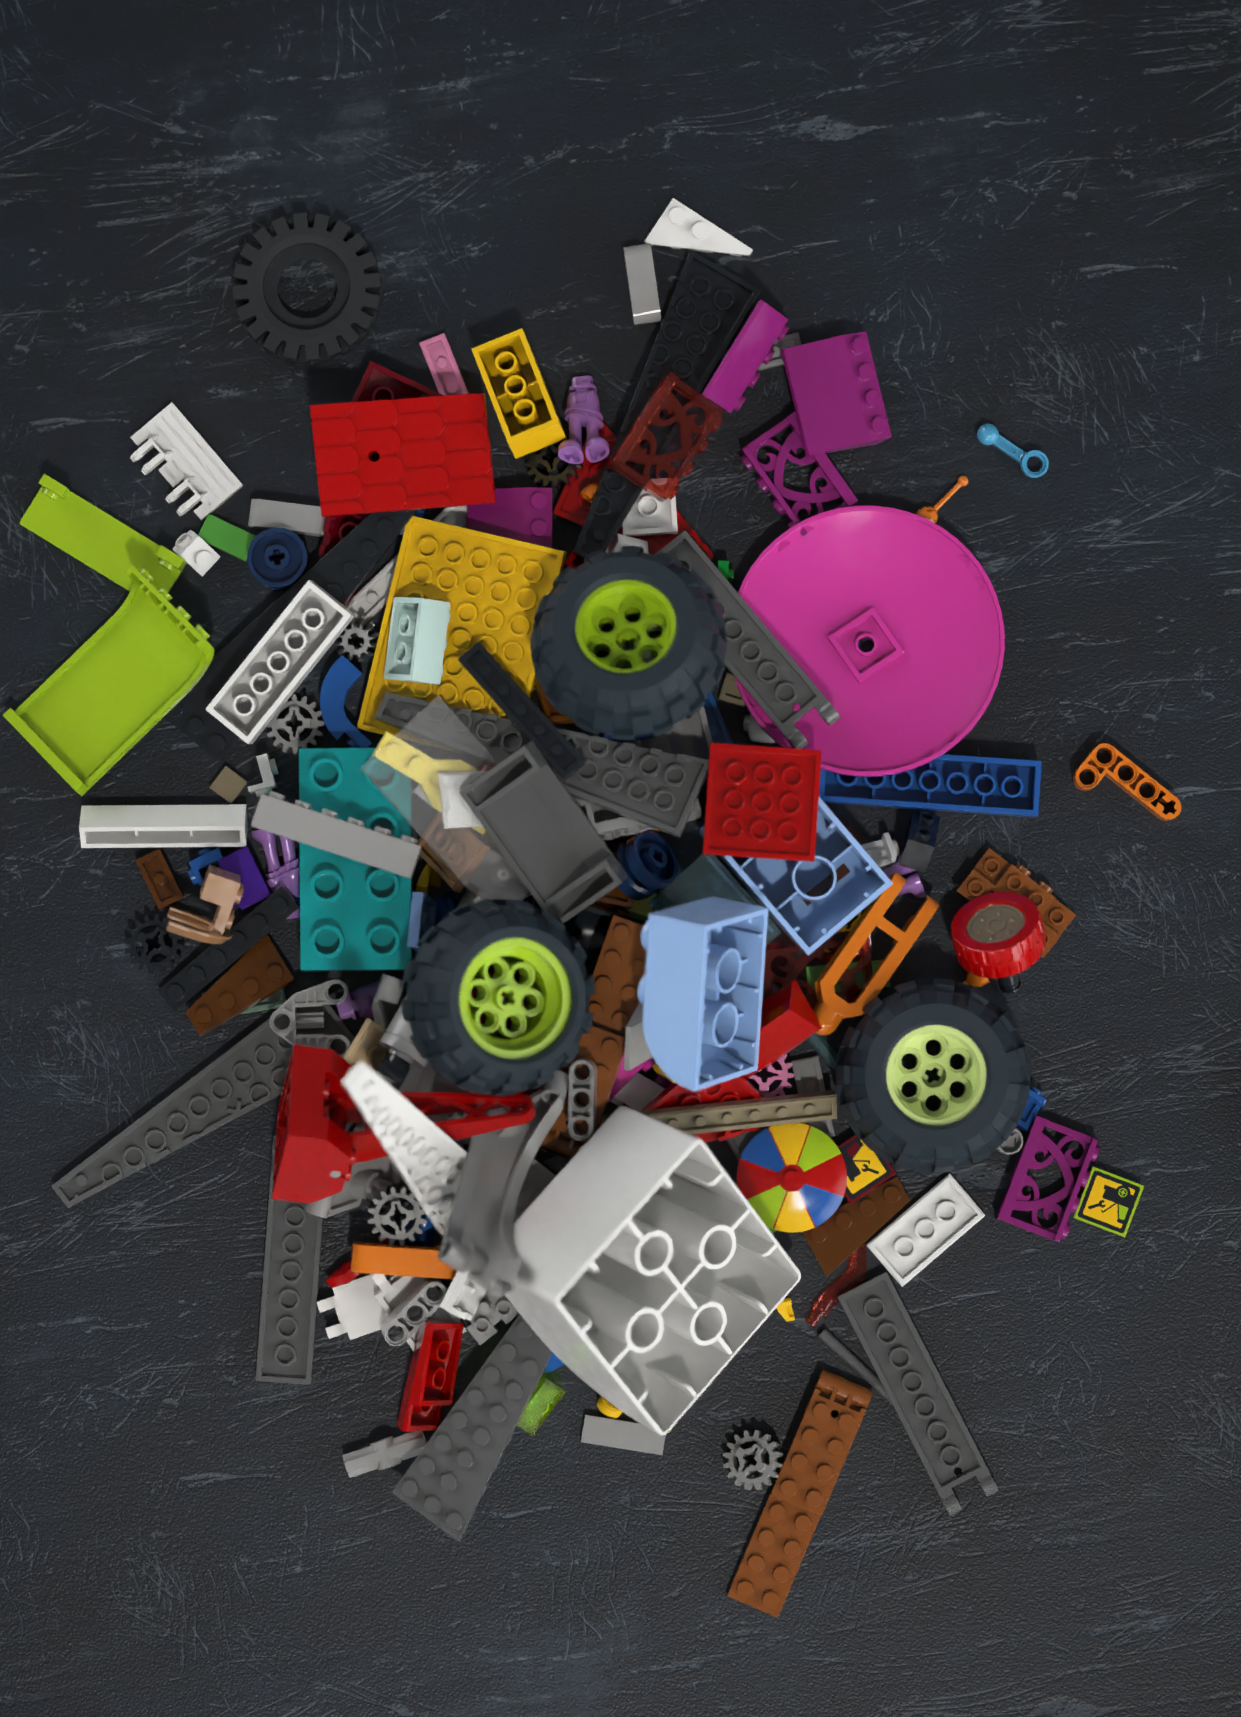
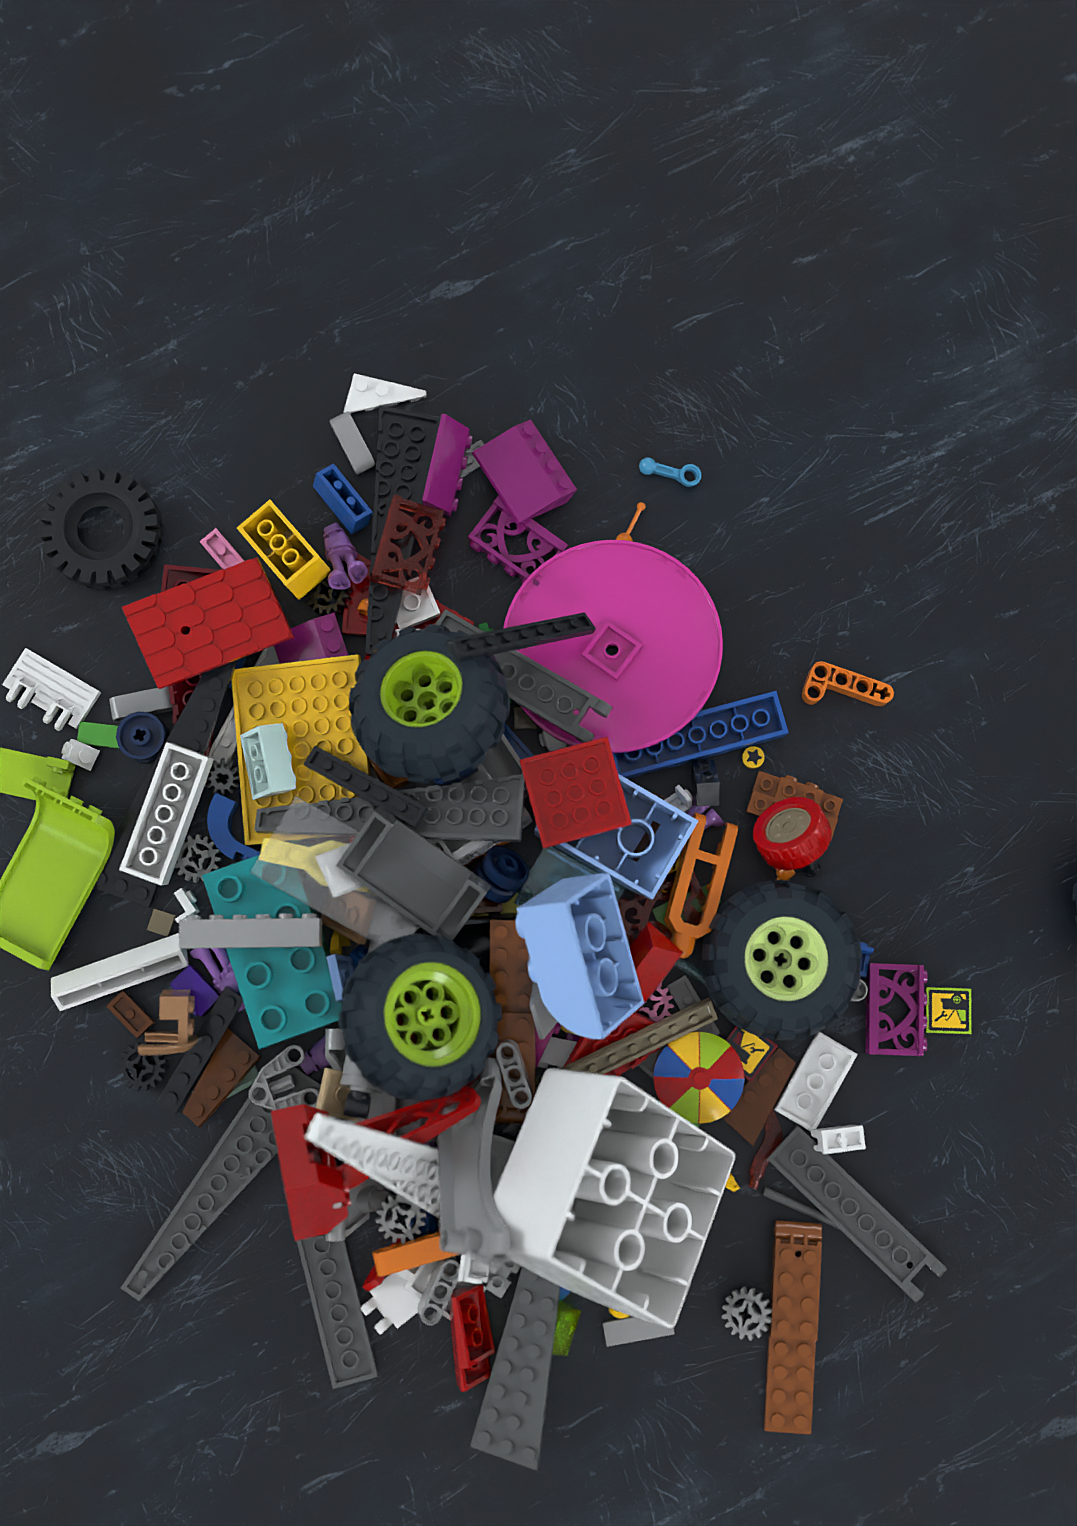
camera: 15 degrees left, 5 degrees down
(206, 857) = (161, 983): blue bracket -> none
(384, 1453) = (454, 1412): light grey piece -> none
(607, 351) = (342, 499): none -> blue brick
(762, 601) = (519, 637): none -> black tile
(928, 1302) = (839, 1138): none -> white hinge
(988, 829) = (753, 757): none -> yellow tile

